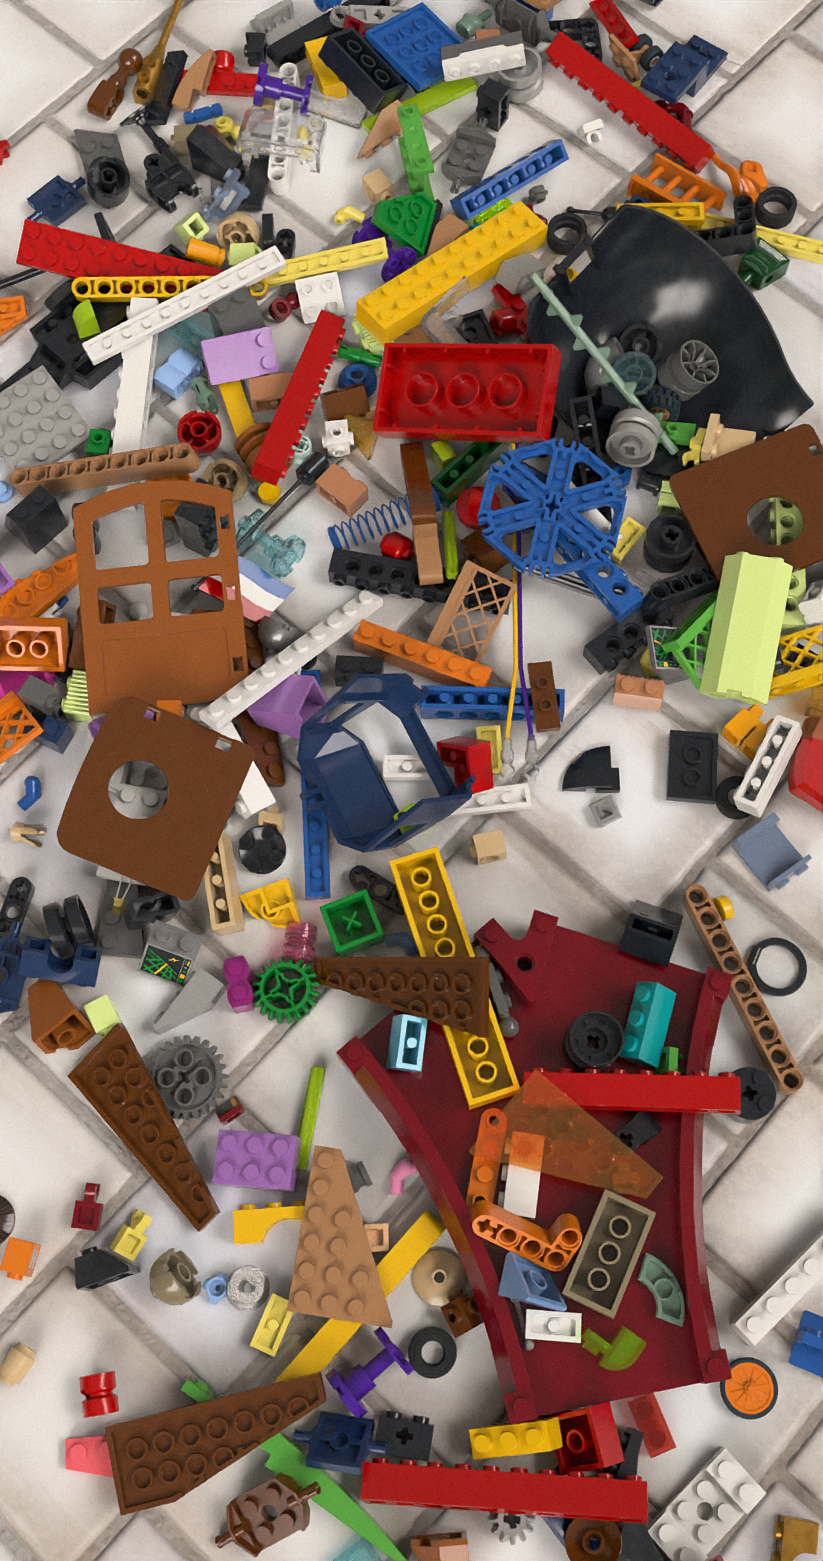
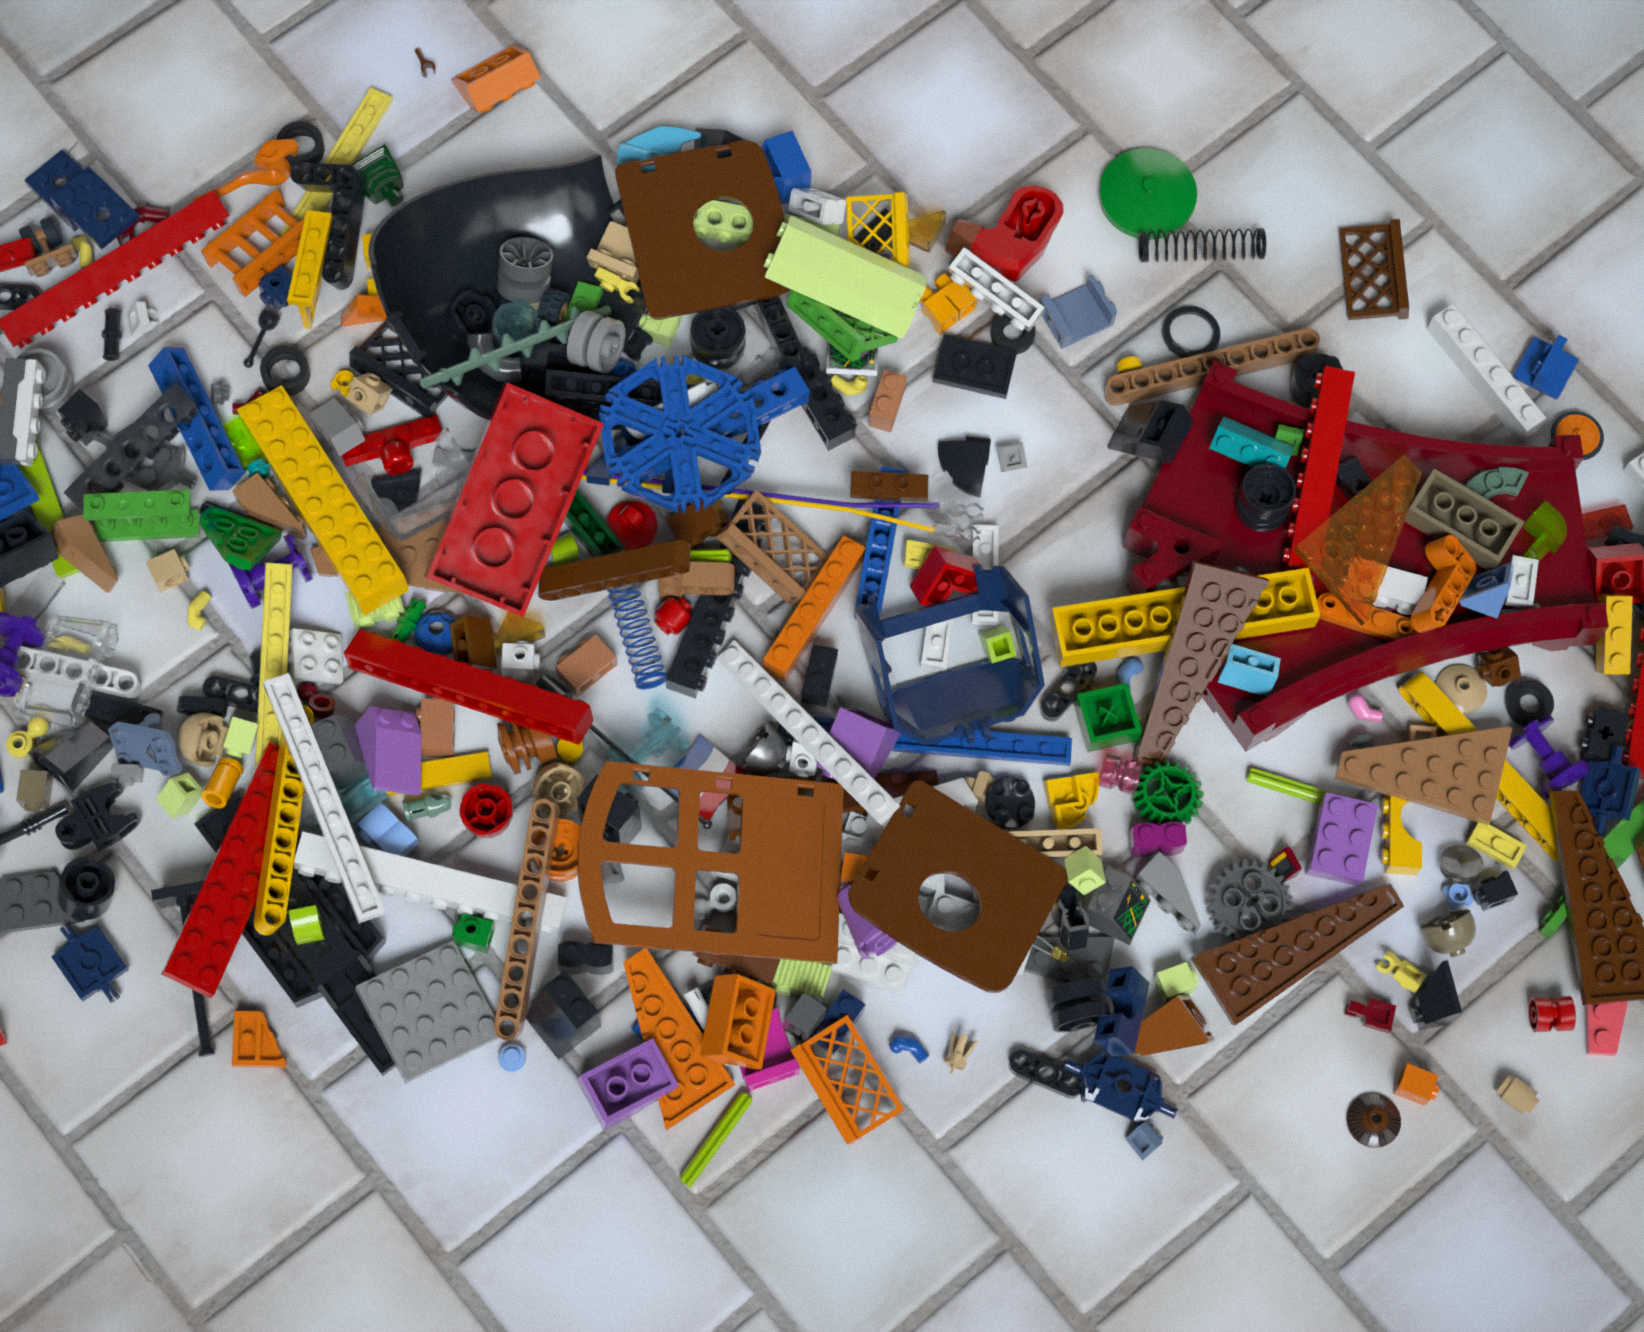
camera: 90 degrees left, 0 degrees up
(59, 295) = (259, 967): black tyre -> none
(193, 914) = (1084, 870): none -> yellowish green brick
(222, 1325) = (1495, 891): none -> black brick
(472, 136) = (99, 470): none -> black brick
(488, 847) = (1038, 574): tan brick -> none
(573, 115) = (111, 334): none -> black pin

